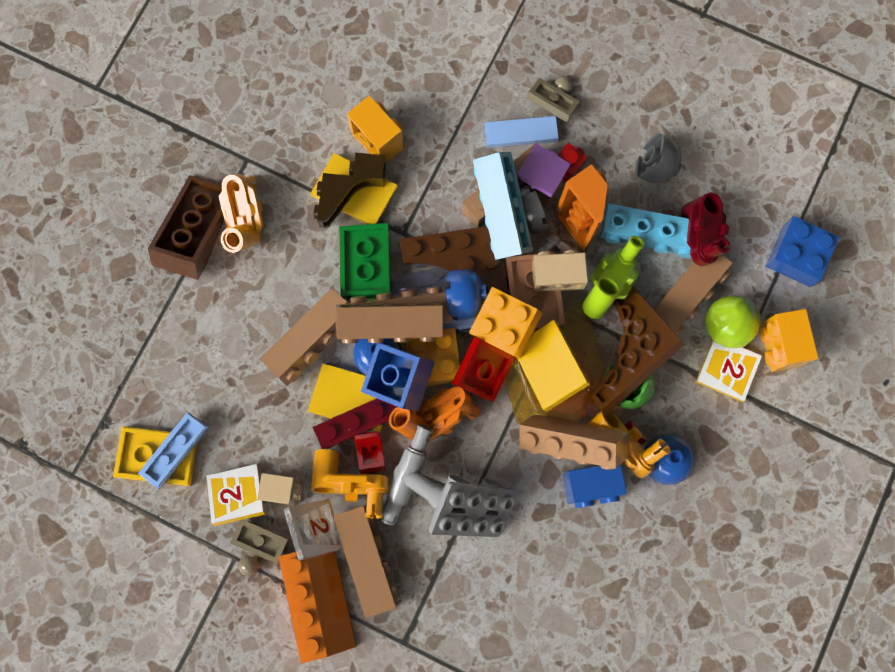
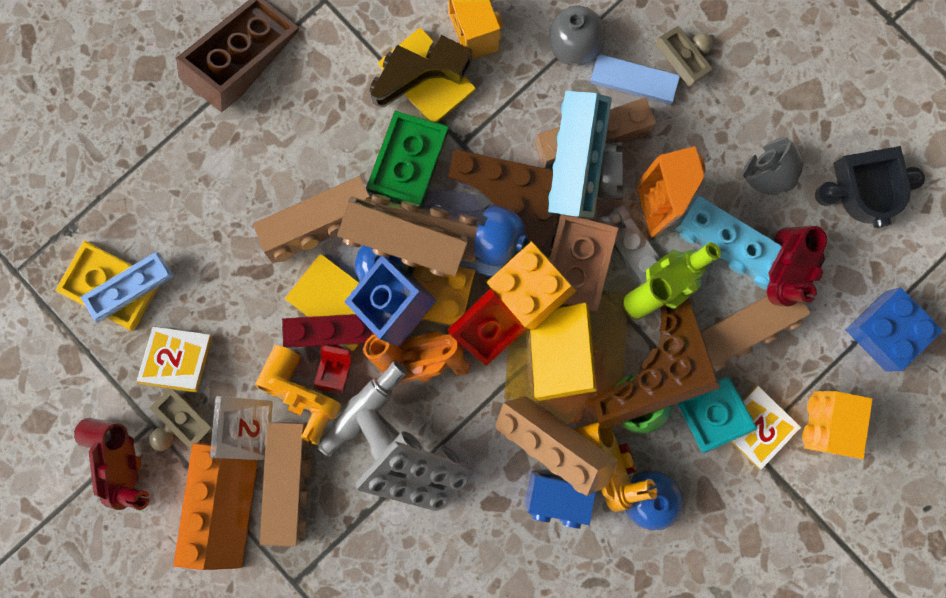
camera: 20 degrees right, 5 degrees up
(216, 600) = (112, 463): none -> dark red piece
(240, 212) = (293, 55): light orange piece -> none
(280, 489) = (220, 373): tan brick -> none
(462, 114) = (577, 35): none -> dark grey cylinder
(543, 170) = (640, 131): medium lavender piece -> none
(559, 271) = (613, 251): tan brick -> none
(576, 158) = (673, 133): red brick -> none
(691, 371) = (717, 416): none -> teal tile
(733, 321) = (784, 378): lime piece -> none
(739, 146) = (872, 185): none -> black piece

